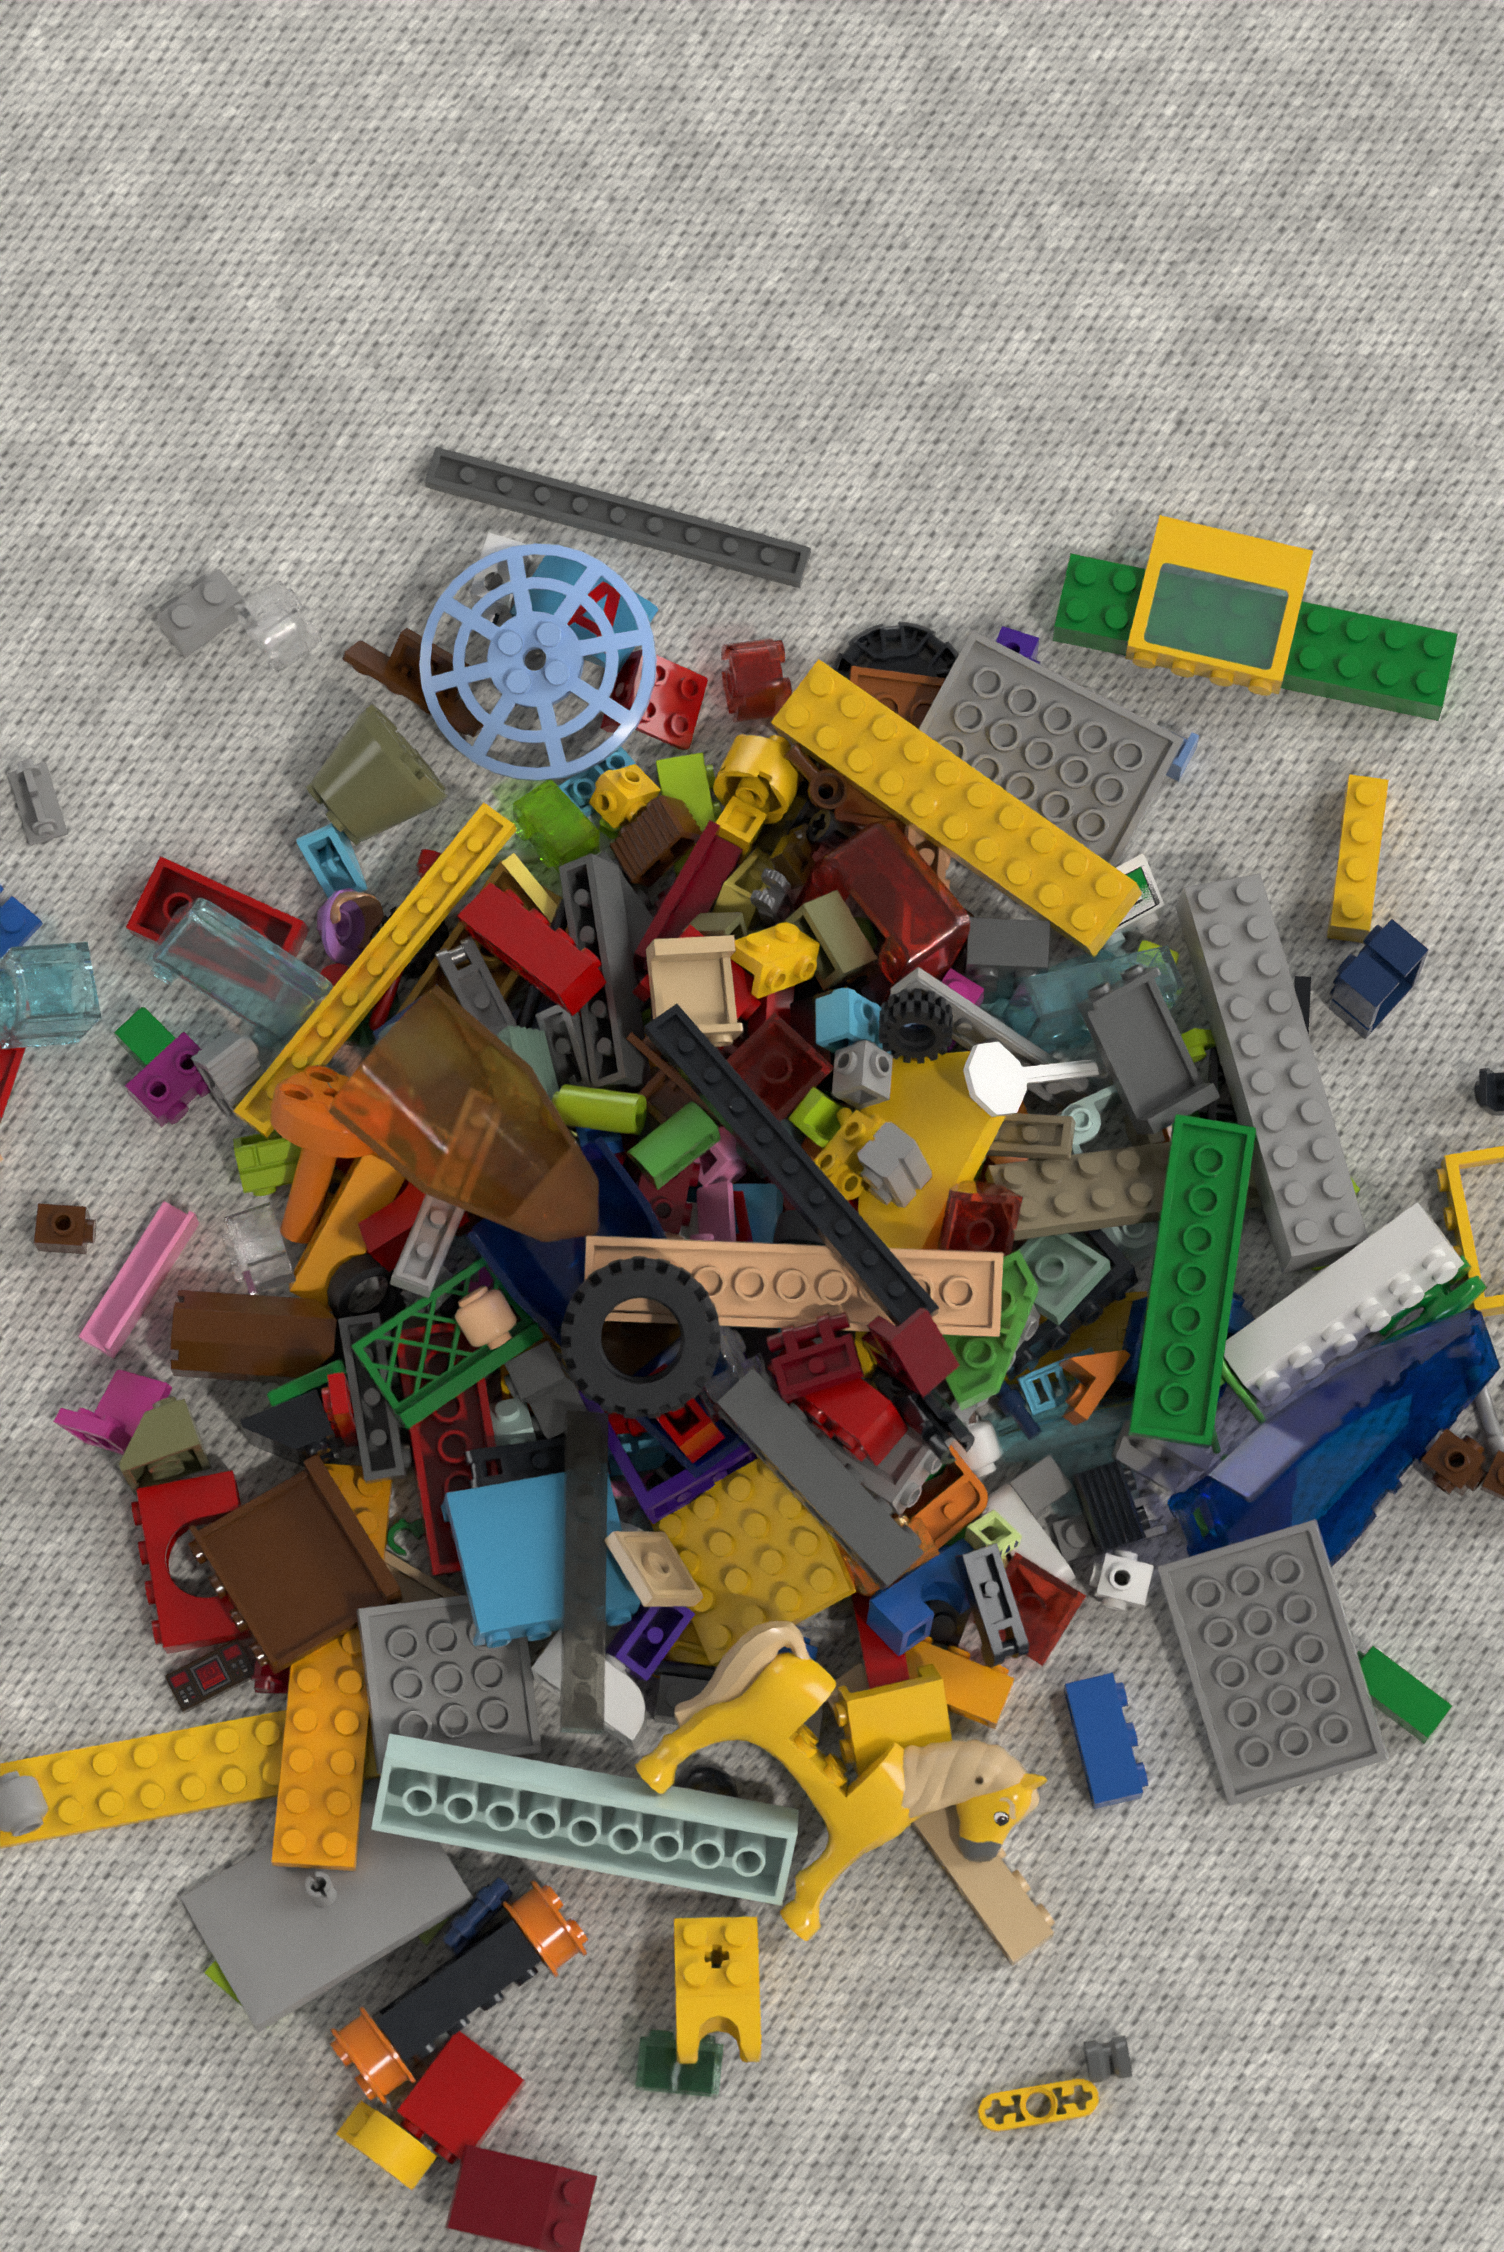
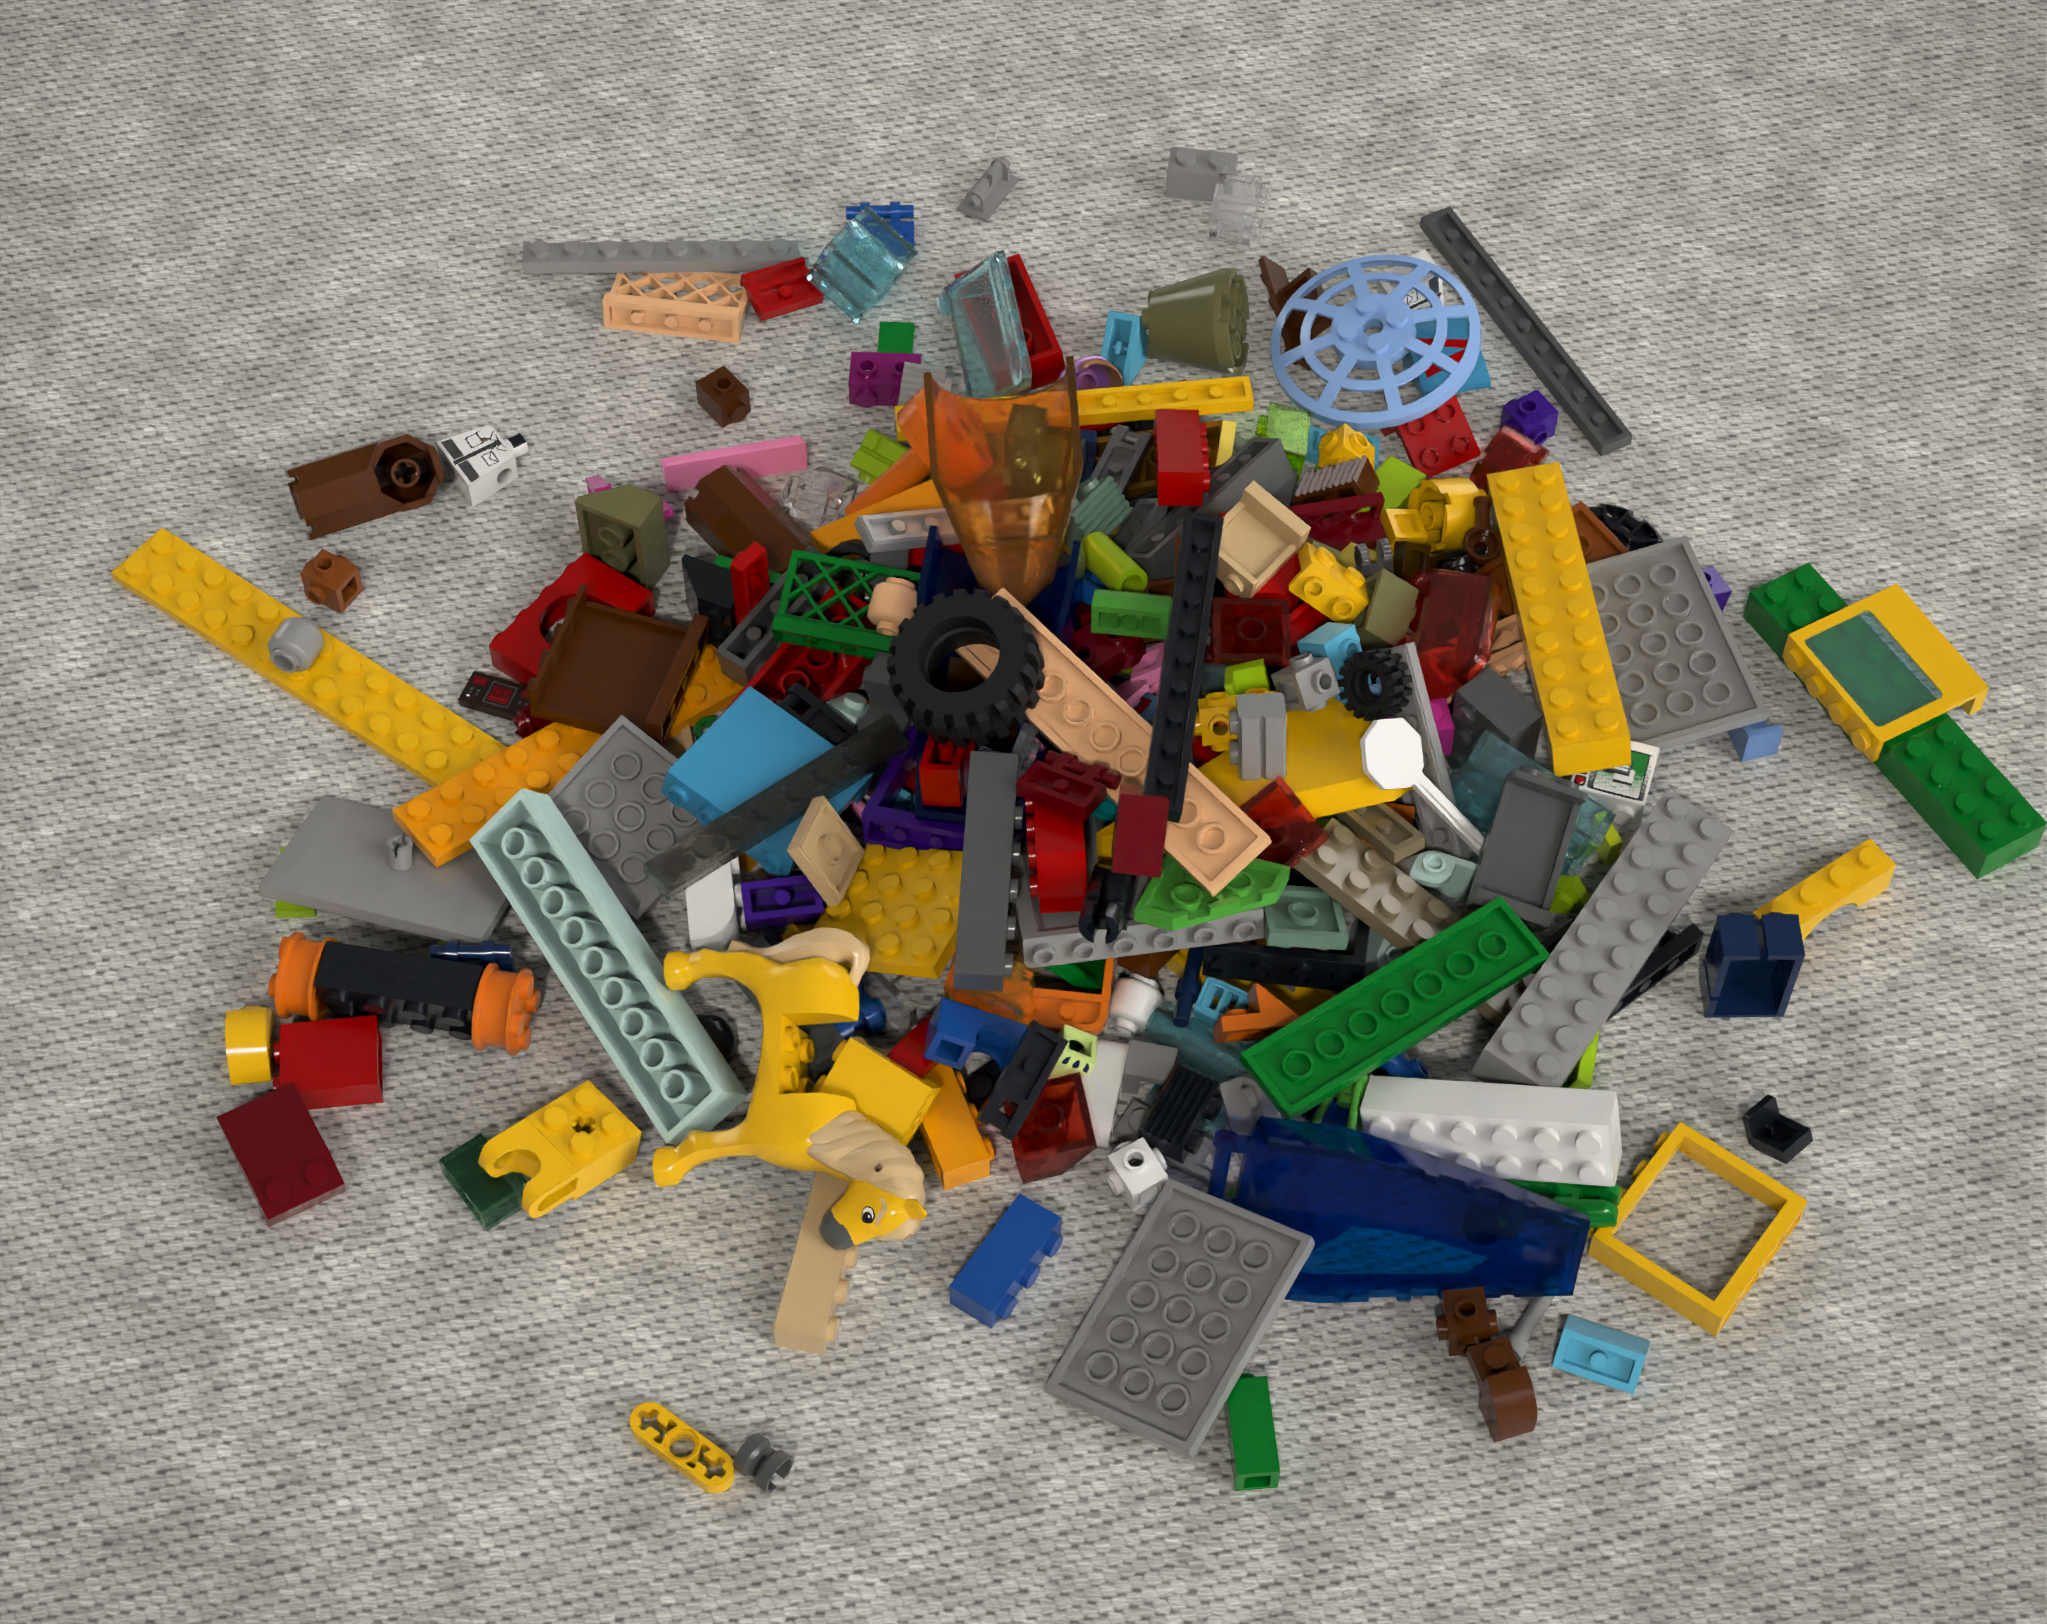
camera: 45 degrees right, 20 degrees down
(720, 615) = (1531, 416): none -> dark purple brick

